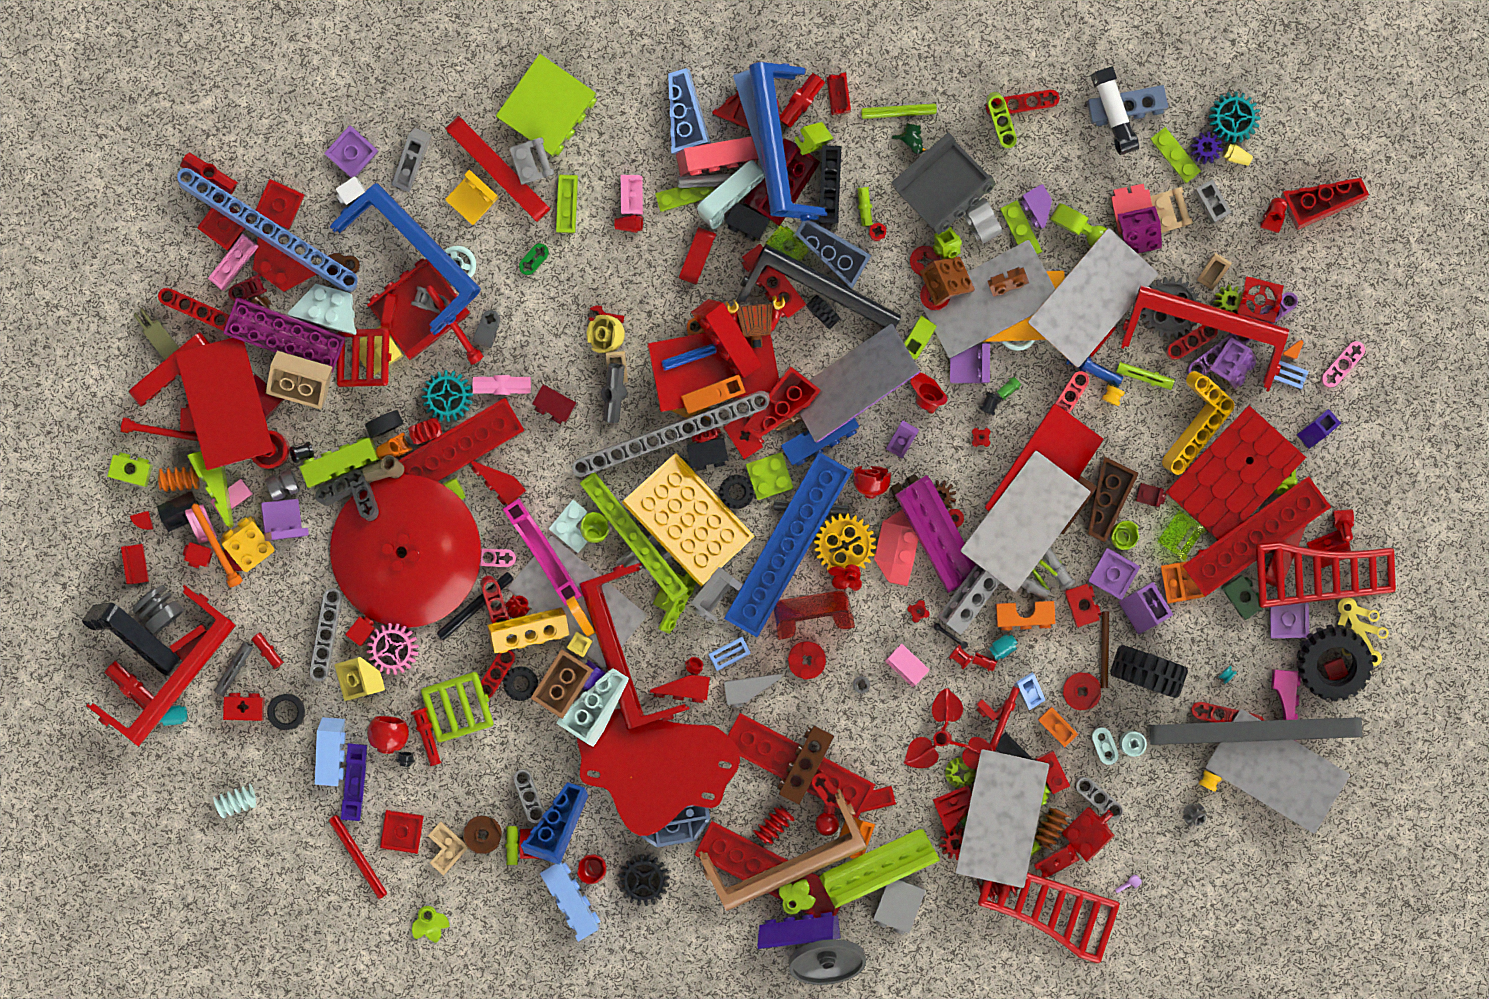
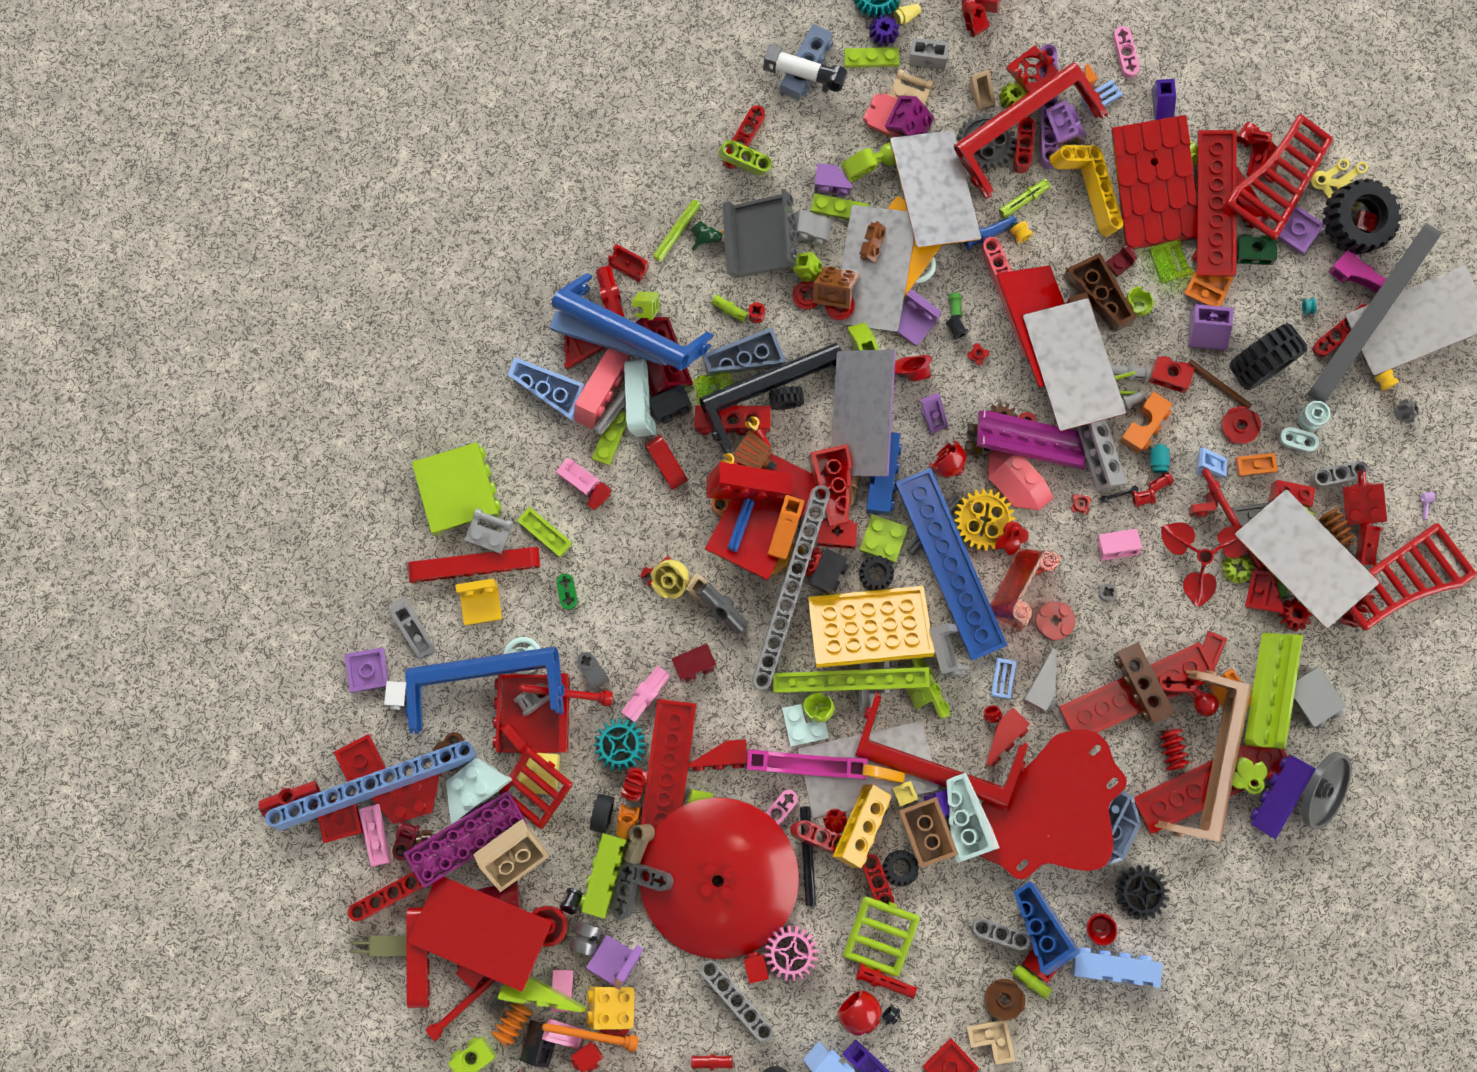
camera: 50 degrees left, 10 degrees down
(358, 678) = (794, 1002): light yellow slope -> none
(830, 184) = (690, 318): black brick -> none
(1113, 573) = (1163, 333): medium lavender plate -> none

